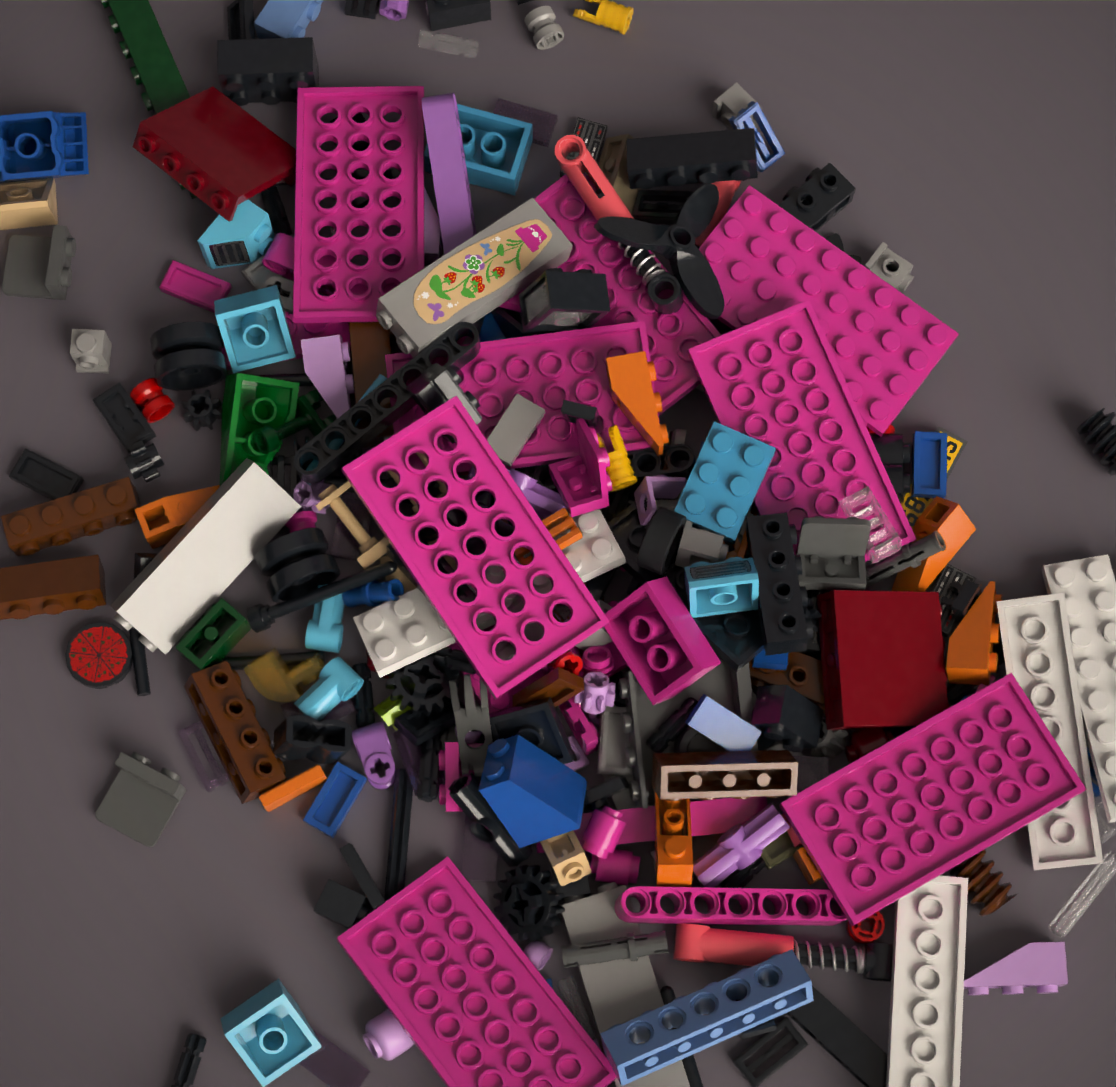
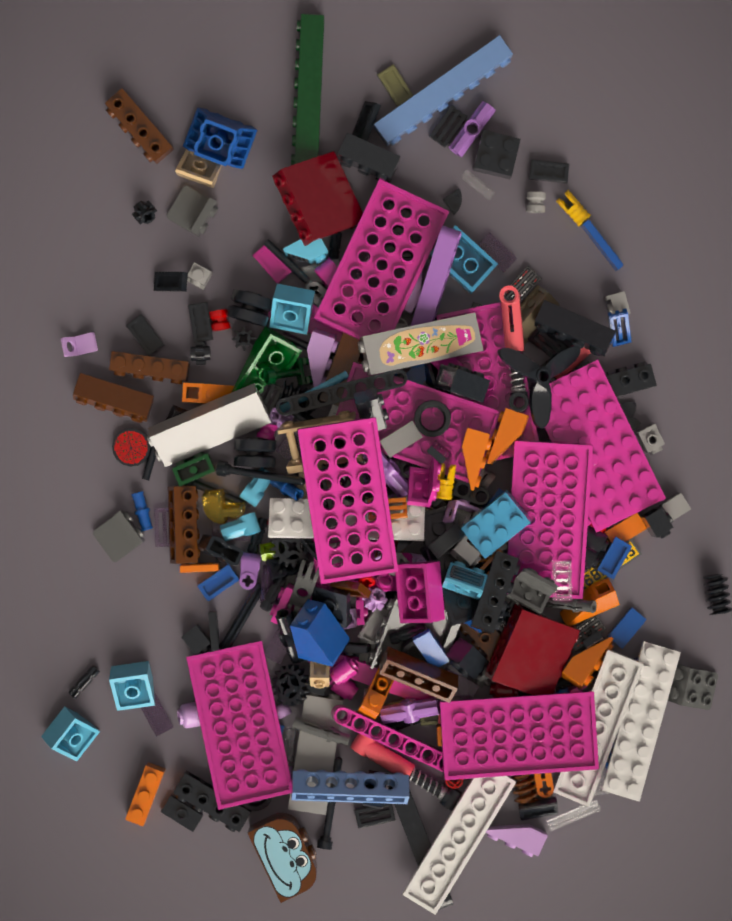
camera: 25 degrees right, 15 degrees up
(49, 376) = (170, 281): none -> black tile
(160, 743) = (142, 511): none -> blue pin
(215, 270) = (285, 260): none -> black bar
(425, 77) = (454, 201): none -> black tile
(537, 352) = (432, 433): none -> black tyre
(671, 41) = (602, 245): none -> blue tile
(673, 336) = (510, 429): none -> orange slope
(925, 414) = (627, 528): none -> orange tile
(965, 379) = (657, 522): none -> black brick
(979, 346) = (675, 505): none -> light grey panel
(1006, 561) = (626, 627): none -> blue tile
(1016, 858) = (549, 782): none -> orange beam
(1025, 909) = (538, 809): none -> black plate

